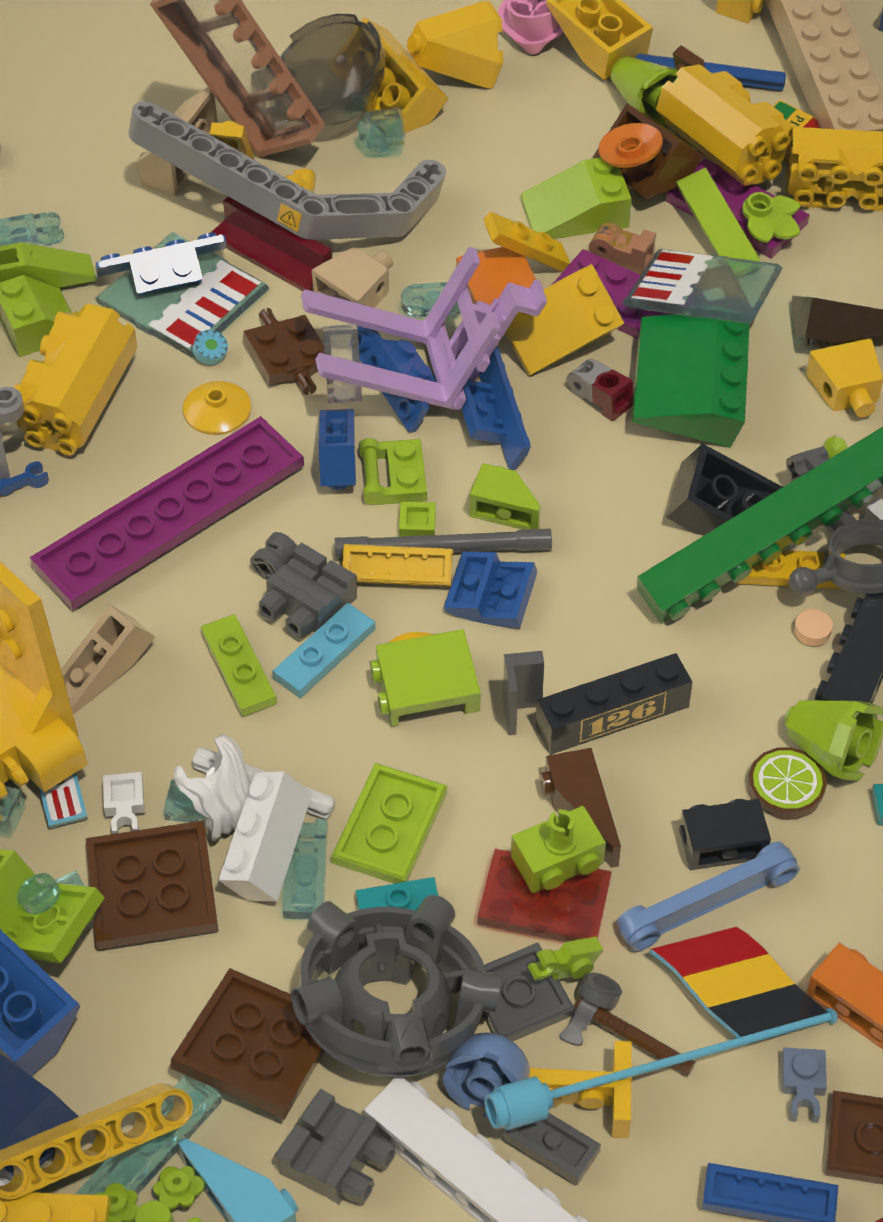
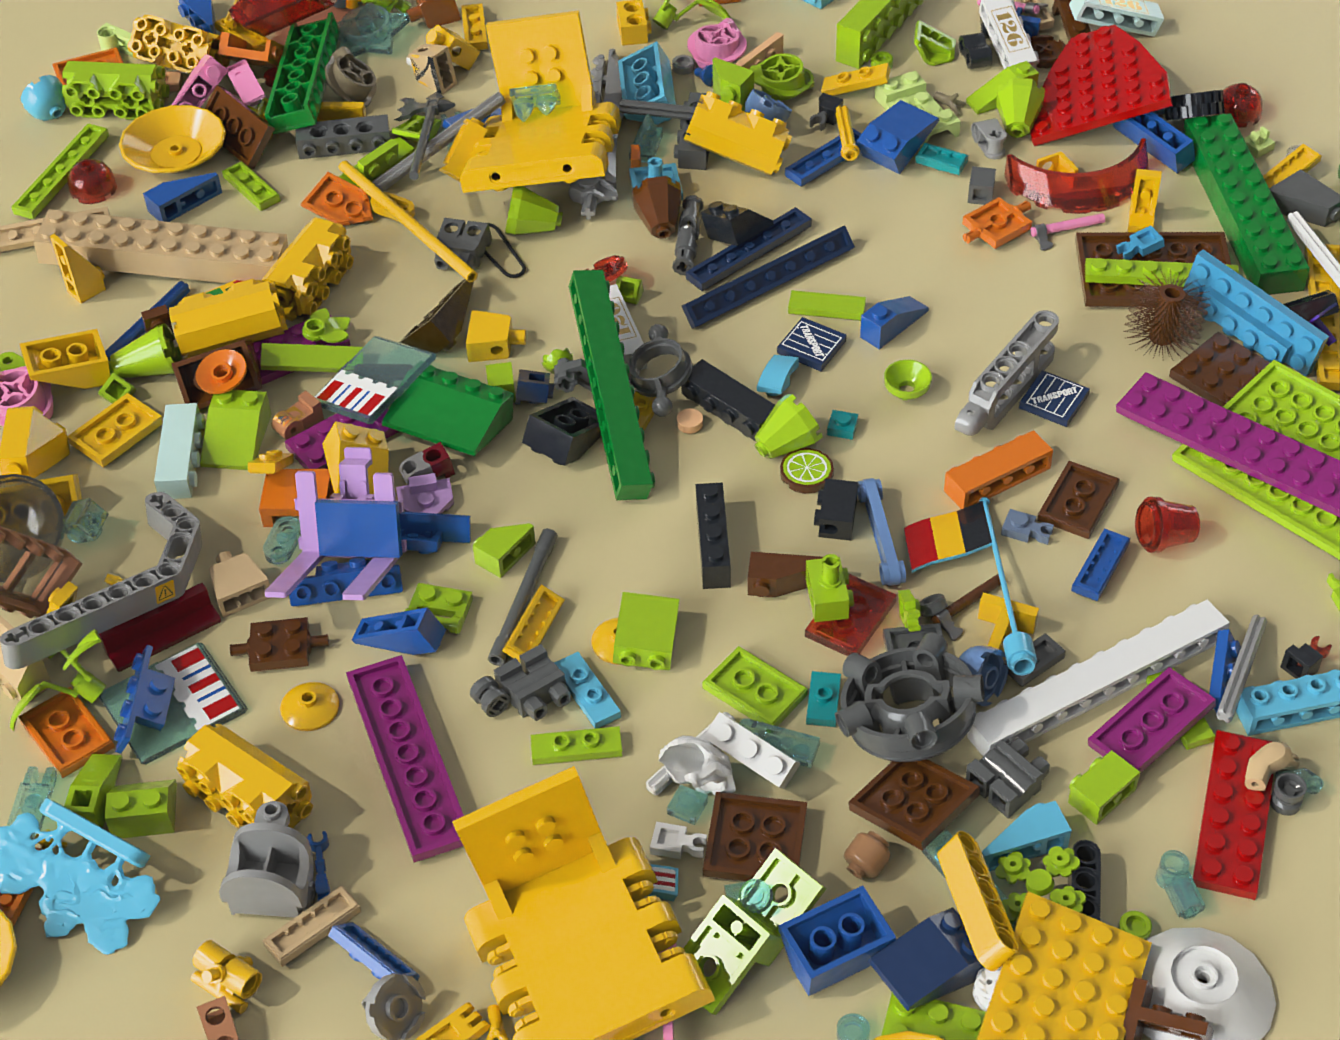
camera: 70 degrees left, 5 degrees down
(115, 224) = (66, 732): none -> orange tile
(157, 1011) = (867, 855): none -> medium nougat head
(168, 211) = (84, 682): none -> lime plant
(210, 347) = (248, 692): medium azure tile -> none
(342, 343) = (326, 606): clear slope -> none
(417, 518) = (492, 606): lime tile -> none
(446, 345) = (358, 528): none -> blue tile
(491, 589) = (579, 578): blue slope -> none
(519, 165) = (179, 450): none -> light aqua brick
(521, 684) = (687, 578): dark grey panel -> none
(533, 107) = (115, 430): none -> yellow plate
(556, 404) = (426, 494): none -> lavender plate
(592, 86) = (115, 388): none -> lime slope
(772, 411) = (501, 376): none -> lime brick
(778, 441) = (534, 387): none -> dark blue brick

